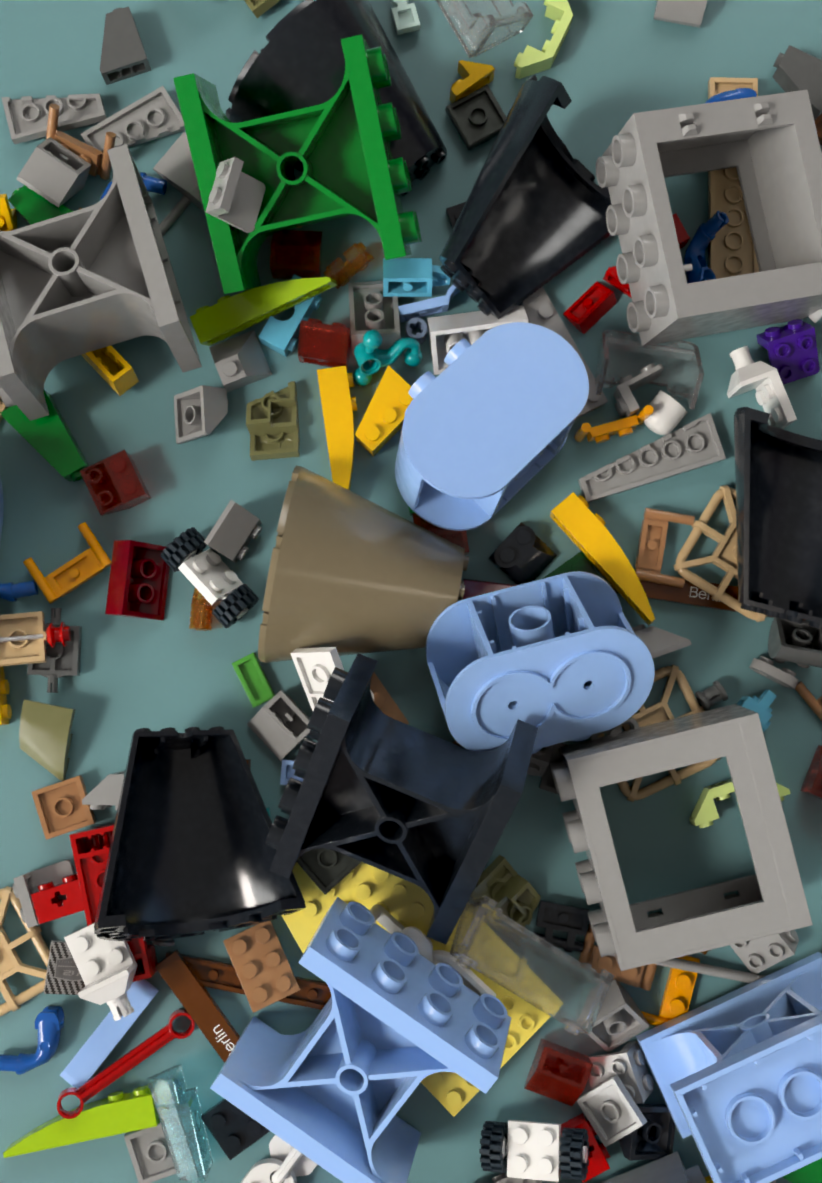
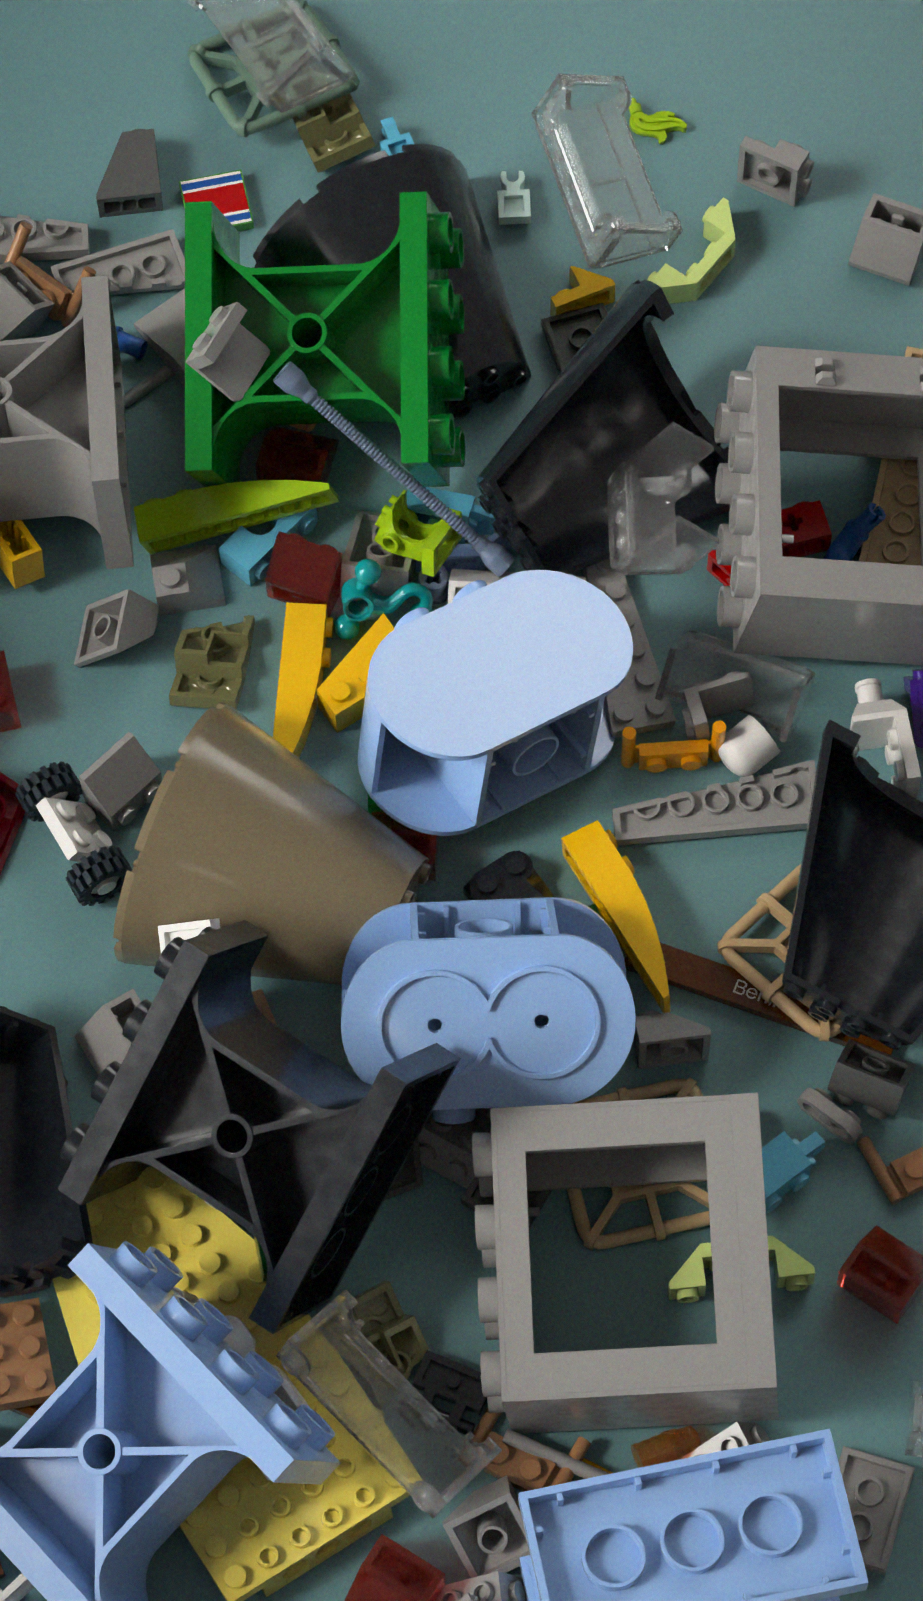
camera: 20 degrees right, 20 degrees down
(189, 55) = (226, 192): none -> tile
(200, 613) = (51, 879): clear orange hinge -> none
(253, 679) = (97, 978): bright green tile -> none
(293, 212) = (295, 383): none -> sand blue hose
(326, 867) = (142, 1218): pearl dark grey plate -> none
(356, 261) = (373, 483): clear orange hinge -> none
(386, 293) = (410, 538): none -> lime tile
(555, 250) = (641, 507): none -> clear windscreen
(590, 307) = (681, 601): red slope -> none
(652, 546) = (696, 914): medium nougat plate -> none

